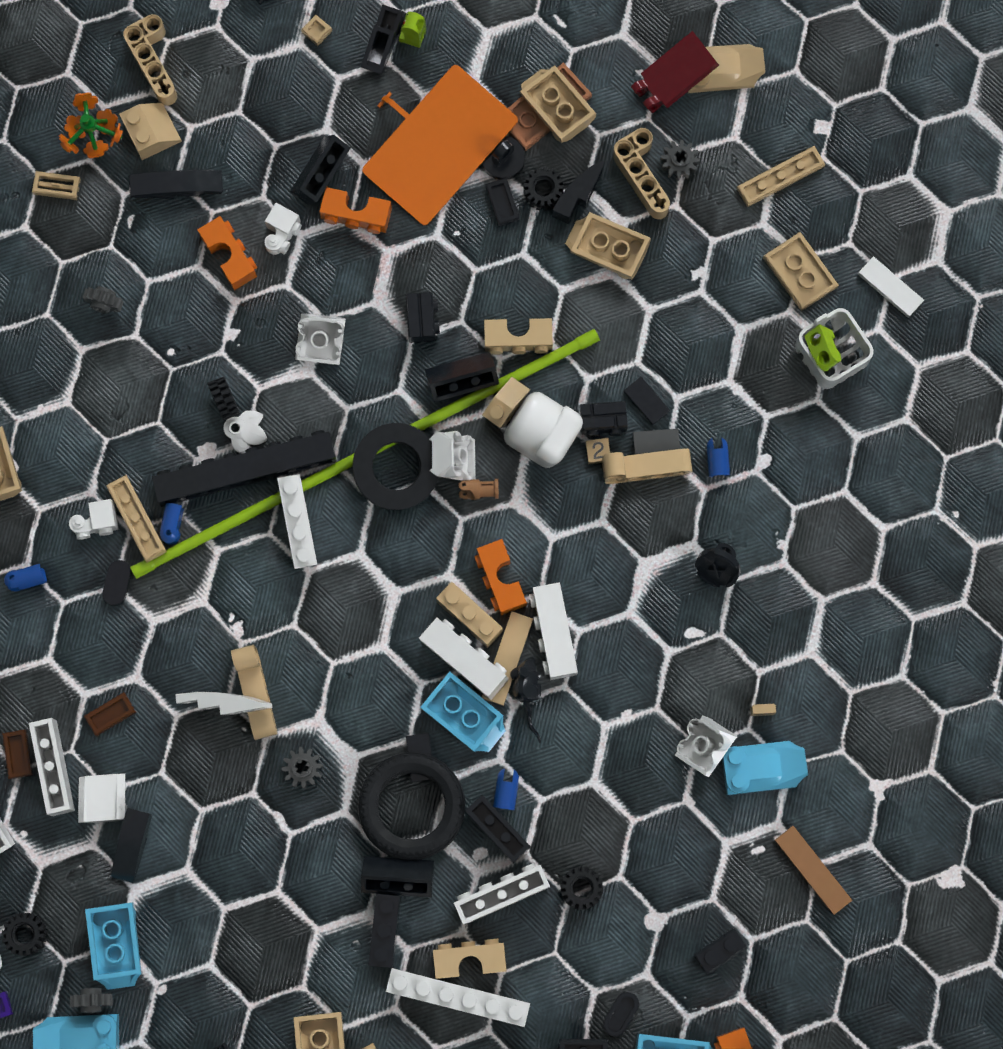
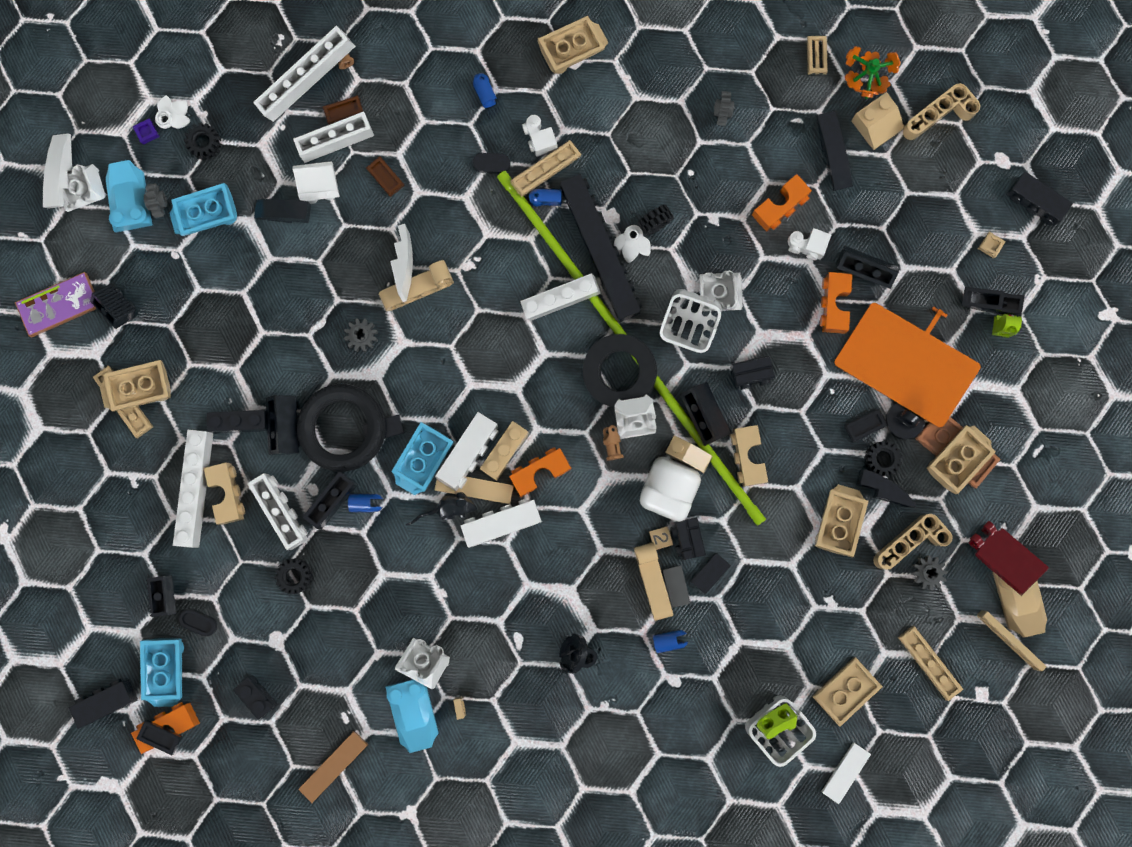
camera: 85 degrees right, 5 degrees up
(380, 366) = (696, 318): none -> white piece
(767, 85) = (1011, 640): none -> tan tile

